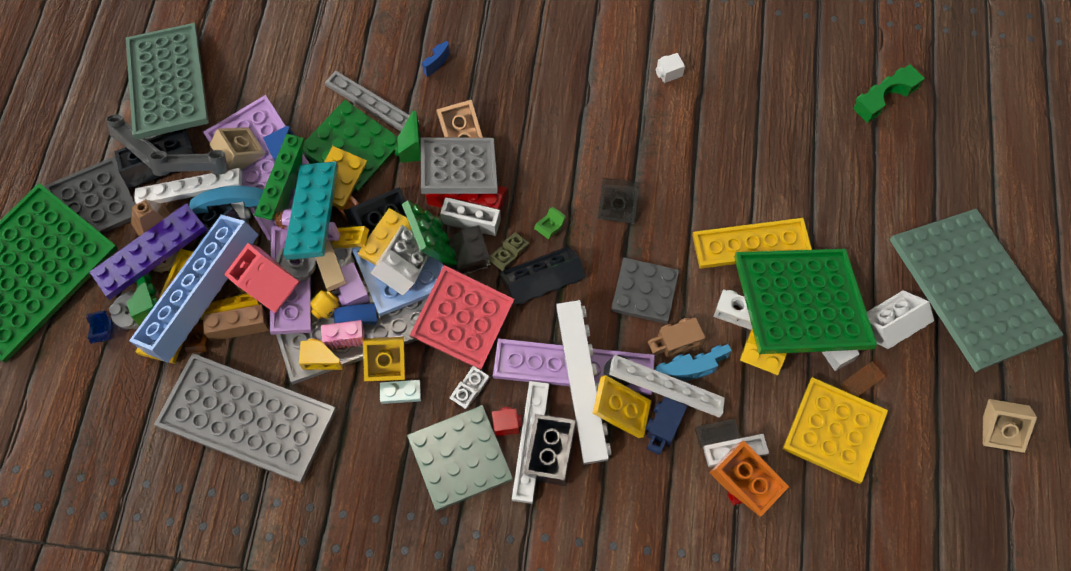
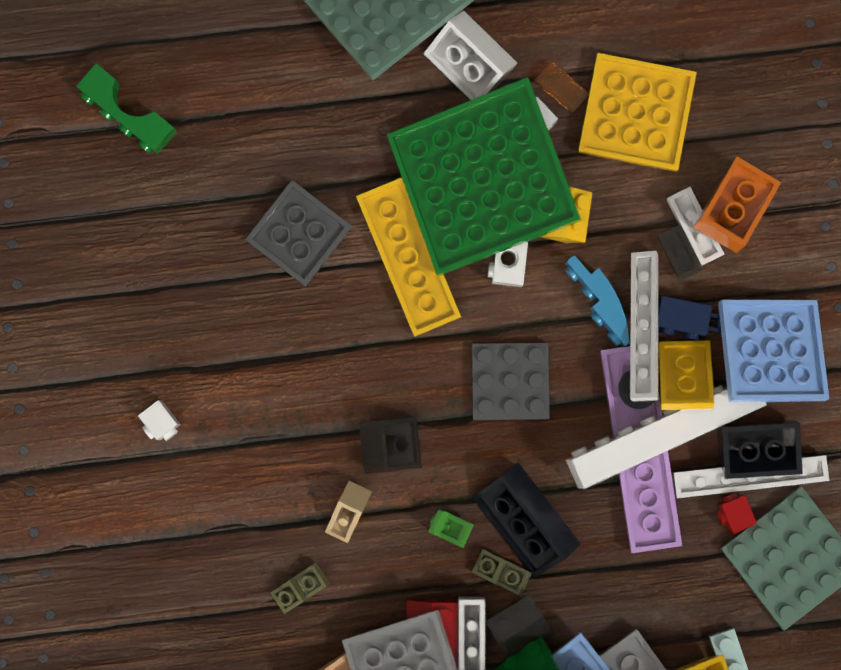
camera: 105 degrees left, 20 degrees up
(462, 317) = (620, 606): coral plate -> none
(470, 387) = (701, 570): white slope -> none
(535, 125) = (300, 588): none -> olive slope
(580, 163) = (348, 511): none -> tan slope
(625, 478) = (773, 351): none -> light blue plate
(678, 337) = (568, 326): medium nougat brick -> none
(782, 177) = (298, 233): none -> dark grey plate

